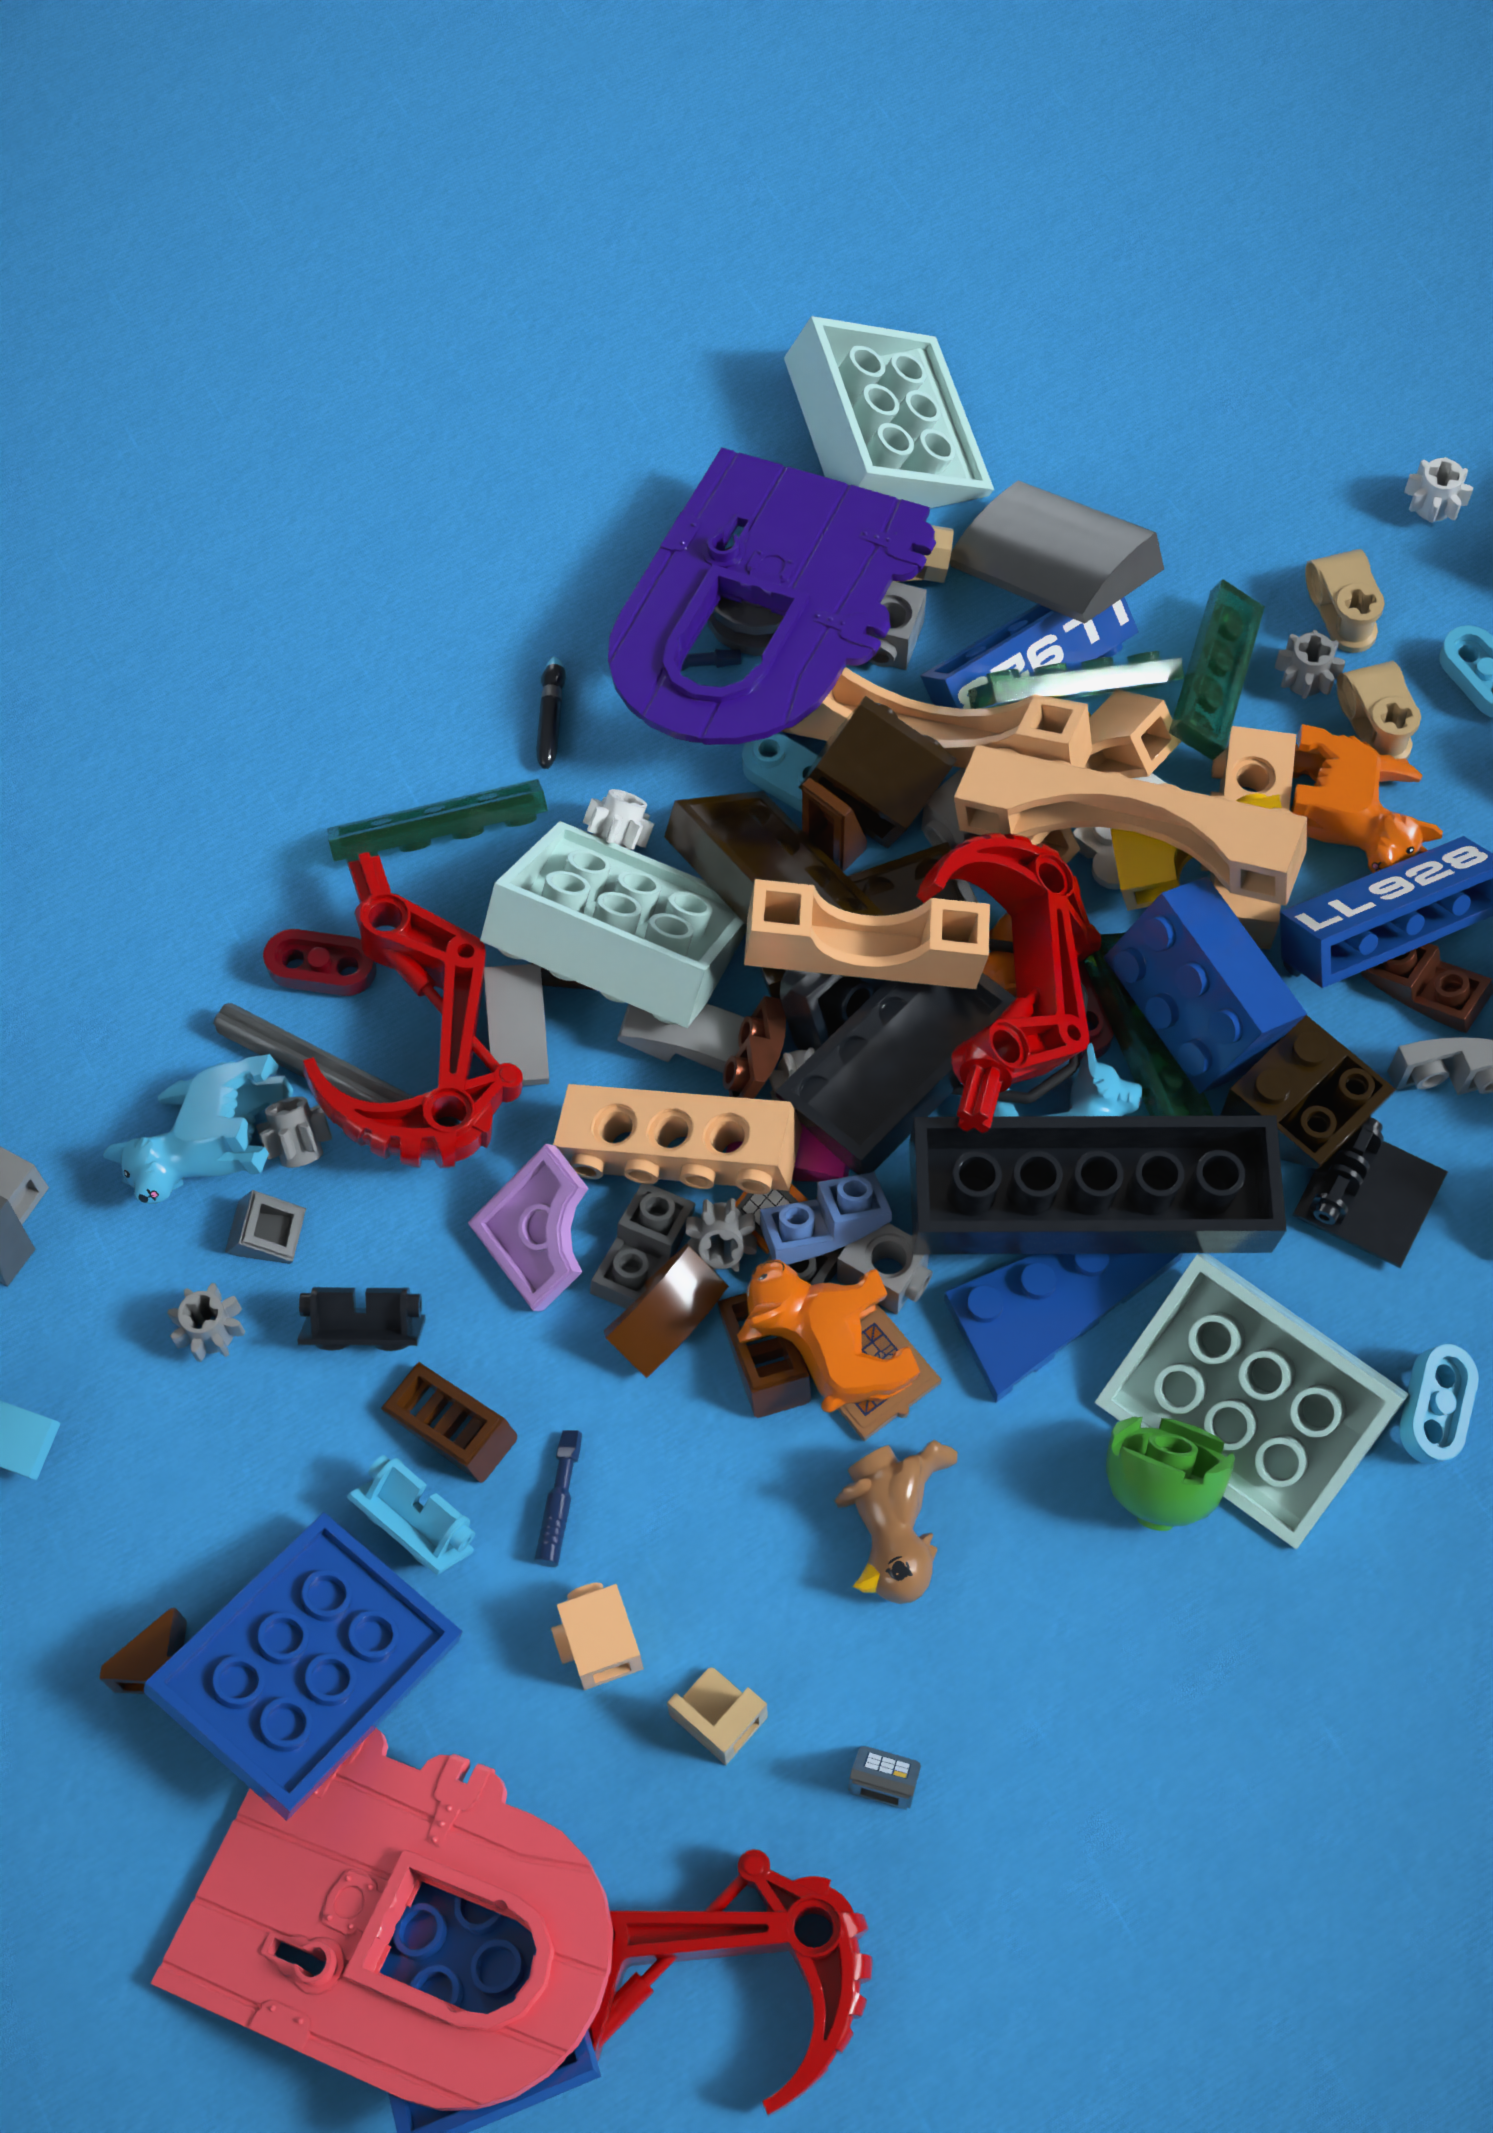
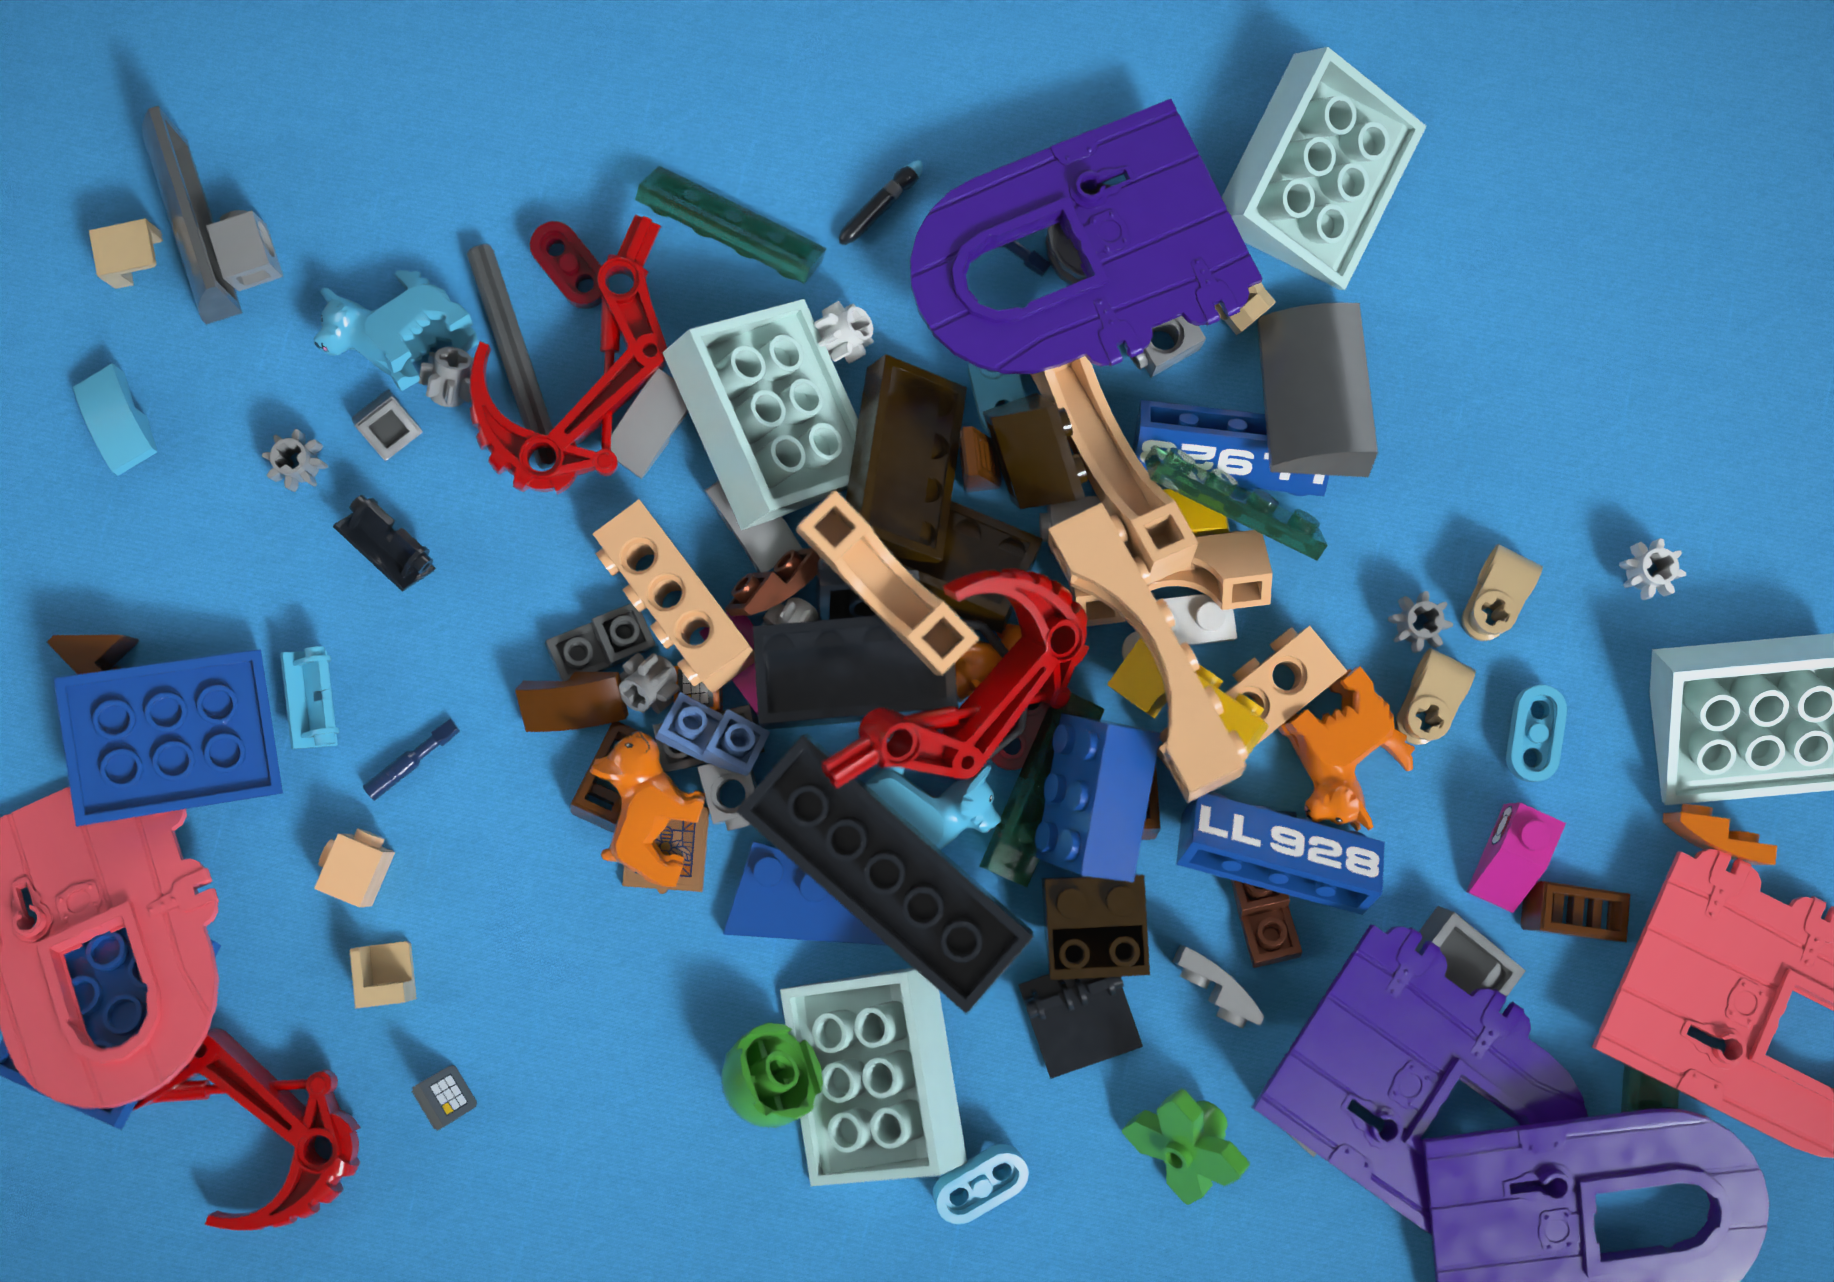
camera: 40 degrees right, 20 degrees up
(479, 1444) = (397, 691): reddish brown slope -> none
(531, 1224) = (538, 572): lavender tile -> none
(889, 1502) = (592, 942): medium nougat animal -> none
(1217, 670) = (1347, 573): clear green plate -> none

